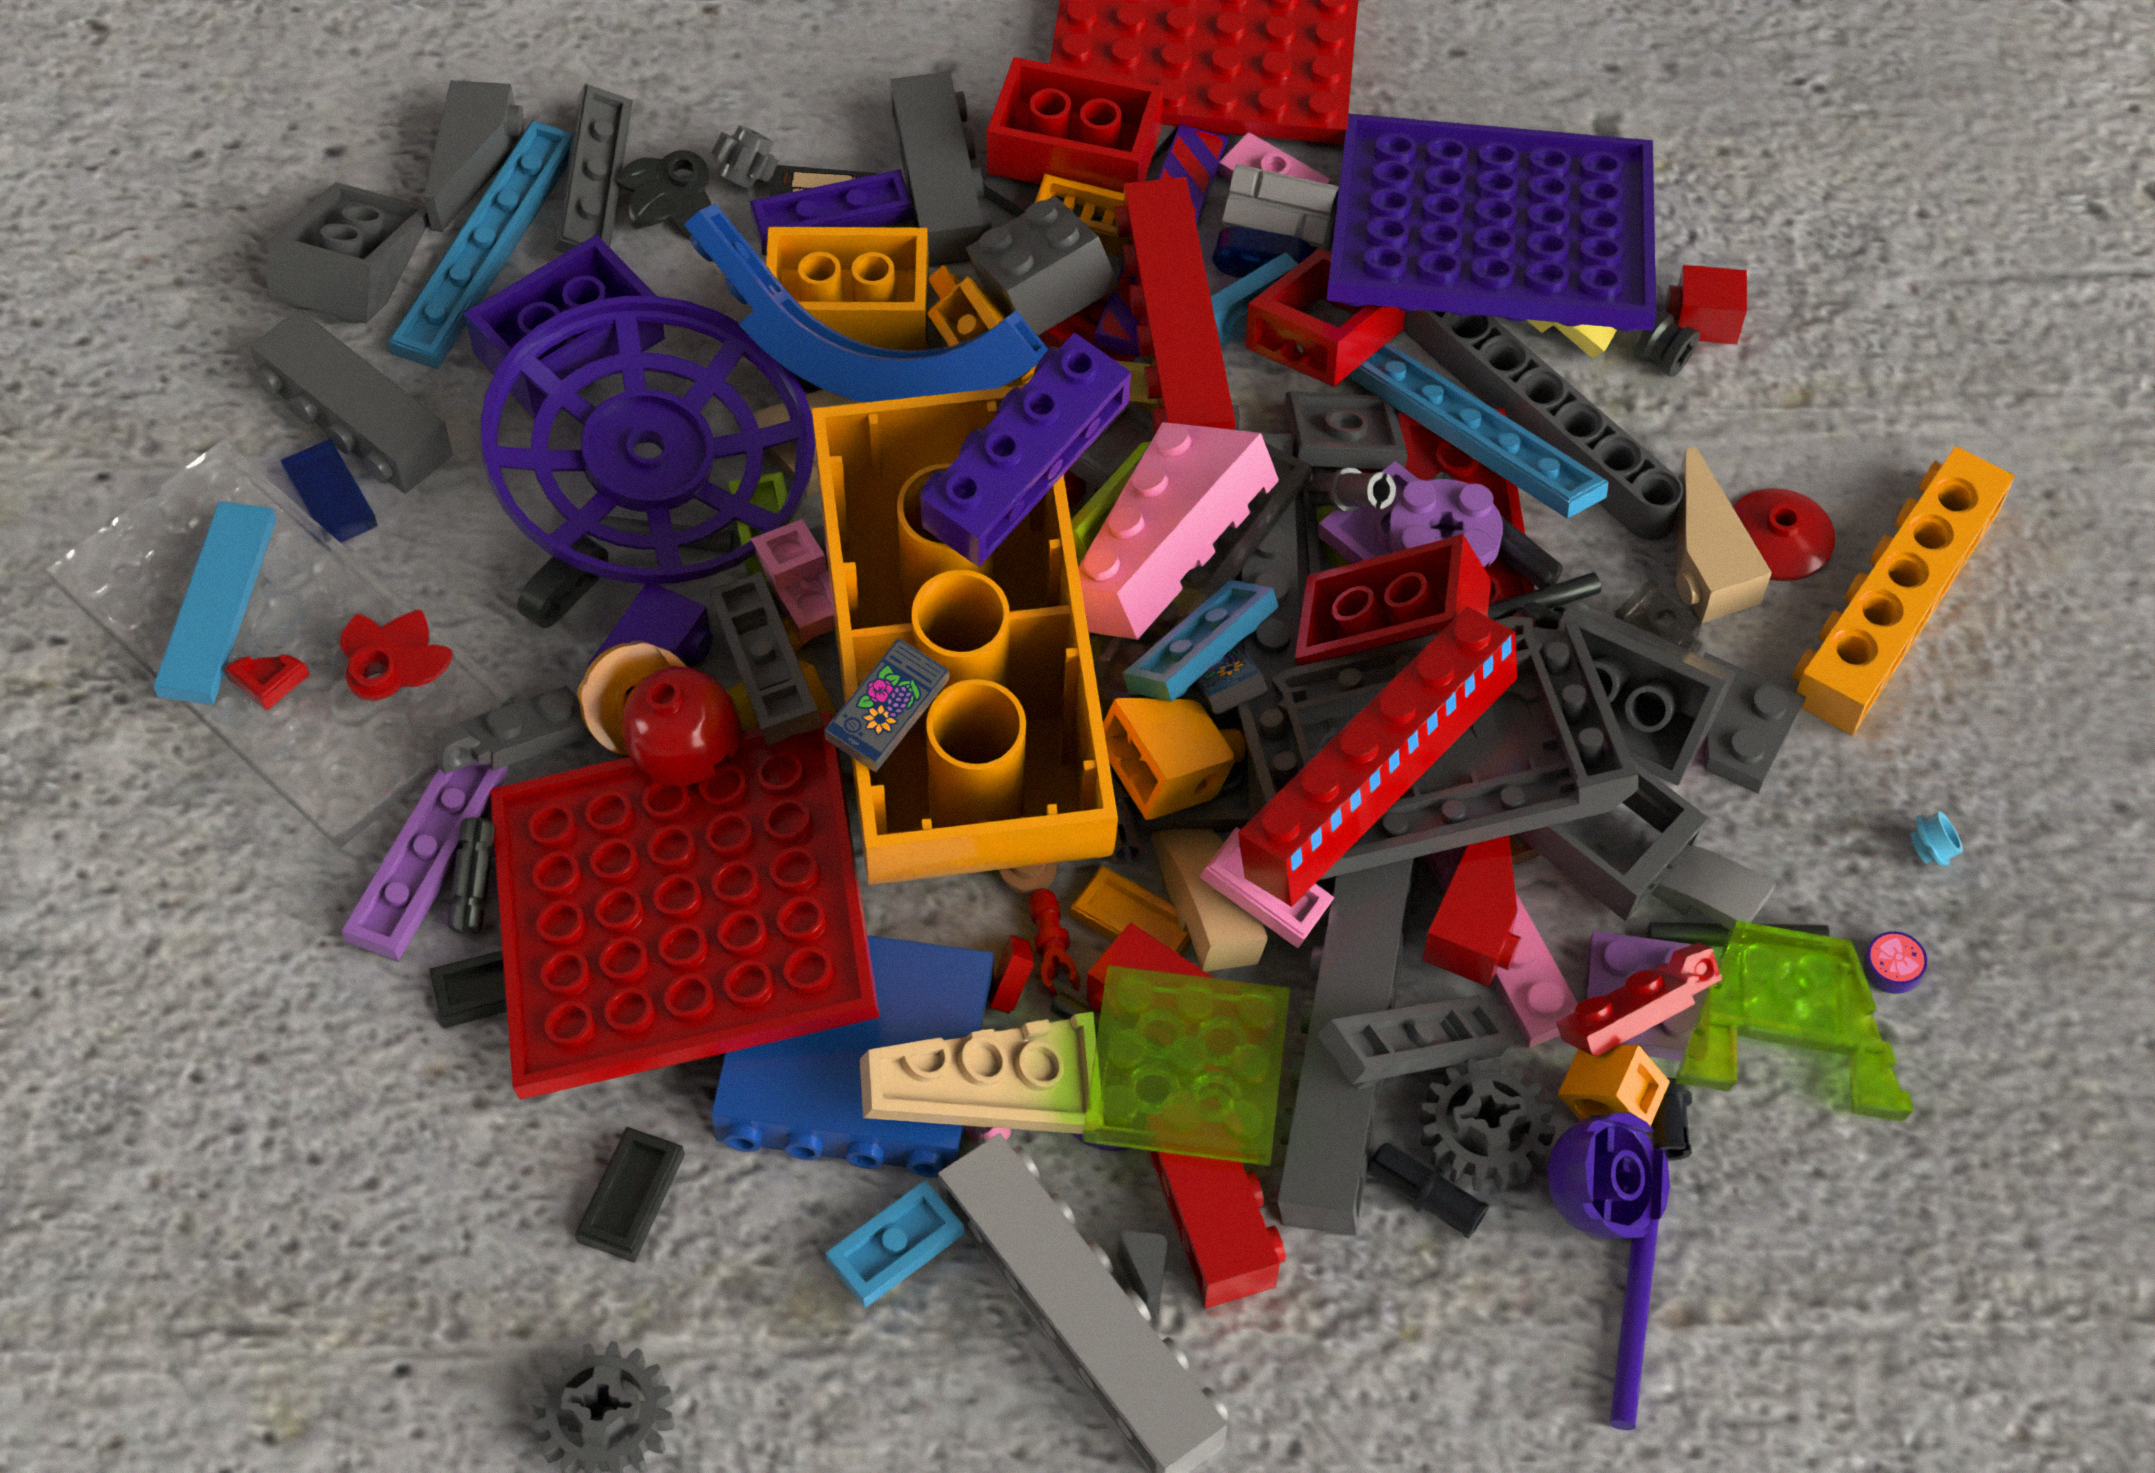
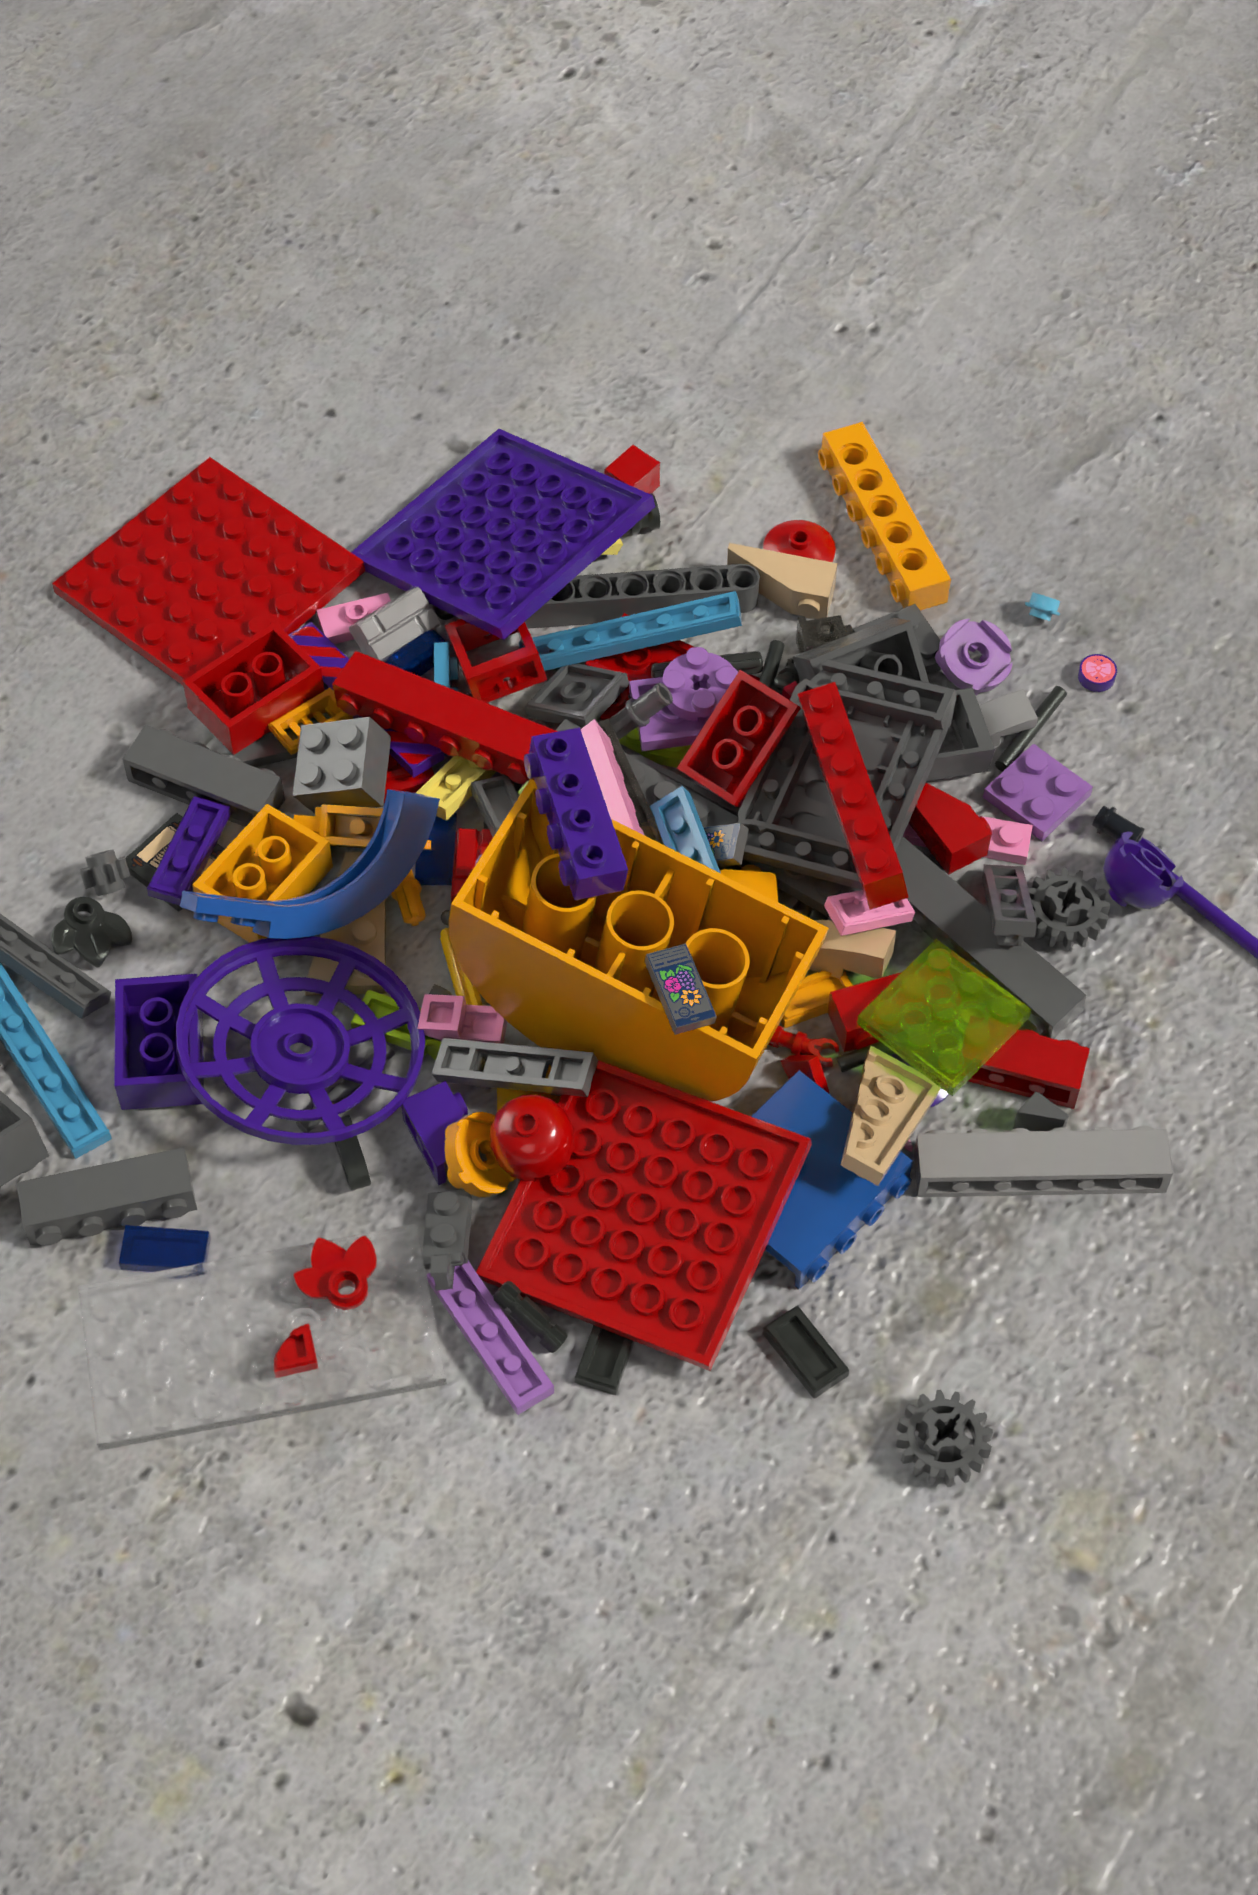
camera: 55 degrees left, 0 degrees up
(215, 603) = (214, 1352): dark azure tile -> none
(894, 1244) = (938, 1231): dark azure plate -> none
(1427, 1189) = (1087, 958): black axle -> none
(1614, 1083) = (1088, 837): light orange brick -> none
(1641, 1003) = (1055, 791): red hinge -> none
(1798, 994) = (1089, 724): clear neon green wing -> none
(1806, 781) = (965, 672): none -> medium lavender plate

